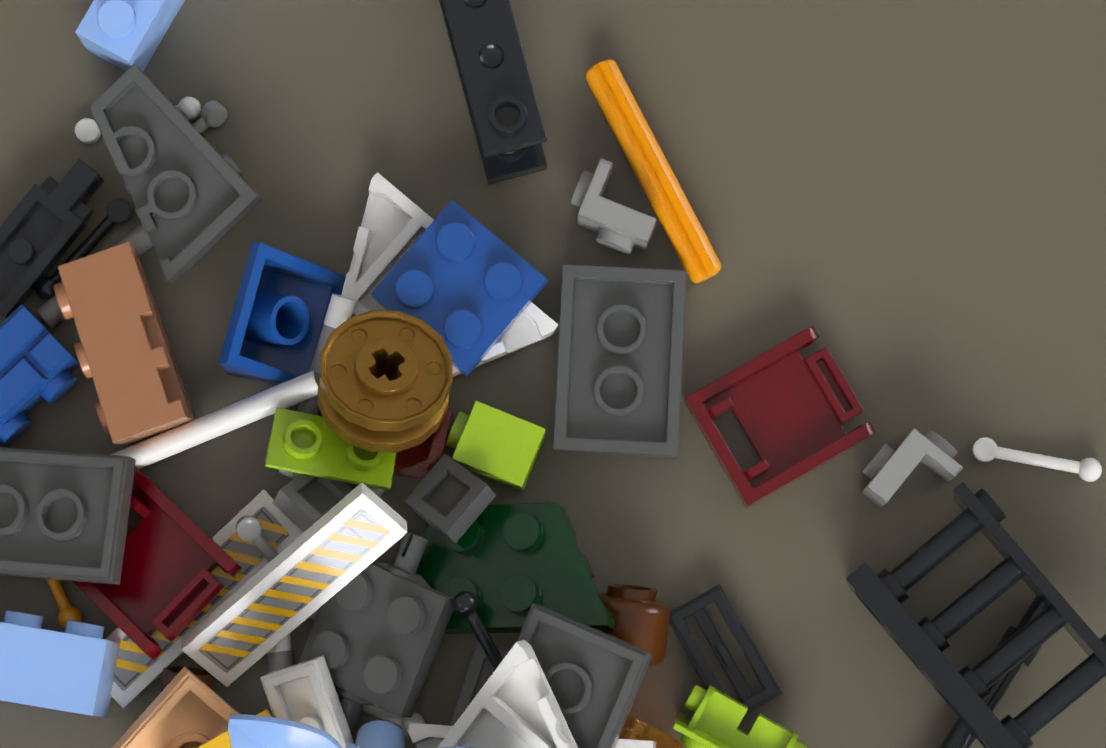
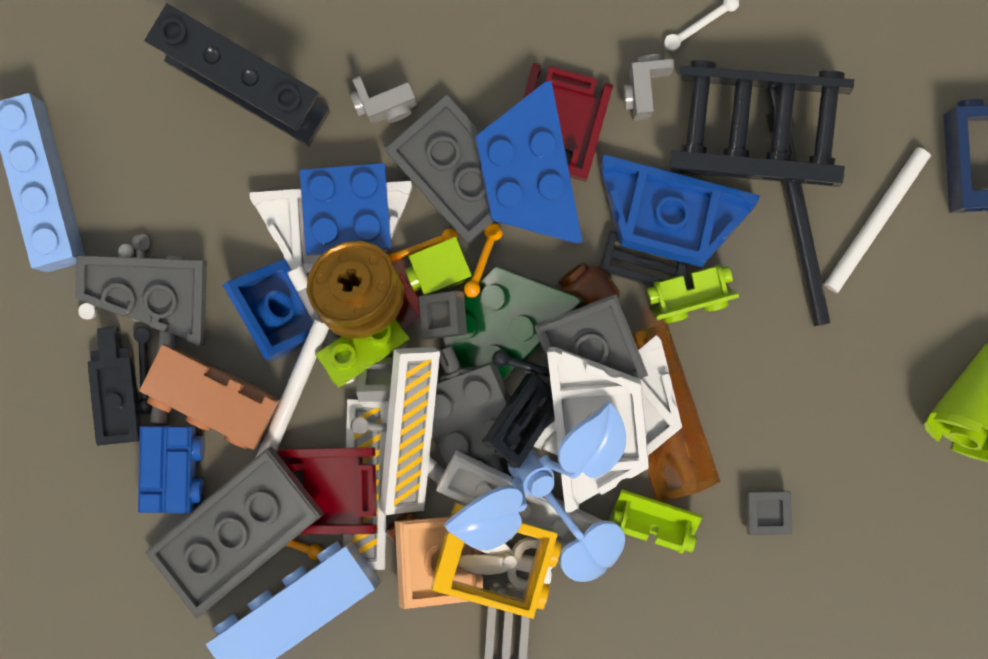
camera: 45 degrees left, 5 degrees up
(406, 671) = (508, 414): none -> black tile
(540, 418) = (446, 235): none -> light orange hinge
(591, 466) = (493, 234): none -> light orange hinge
(653, 171) = (382, 62): light orange axle -> none
(693, 434) = (528, 169): none -> blue wing
(804, 629) = (671, 211): none -> blue wing

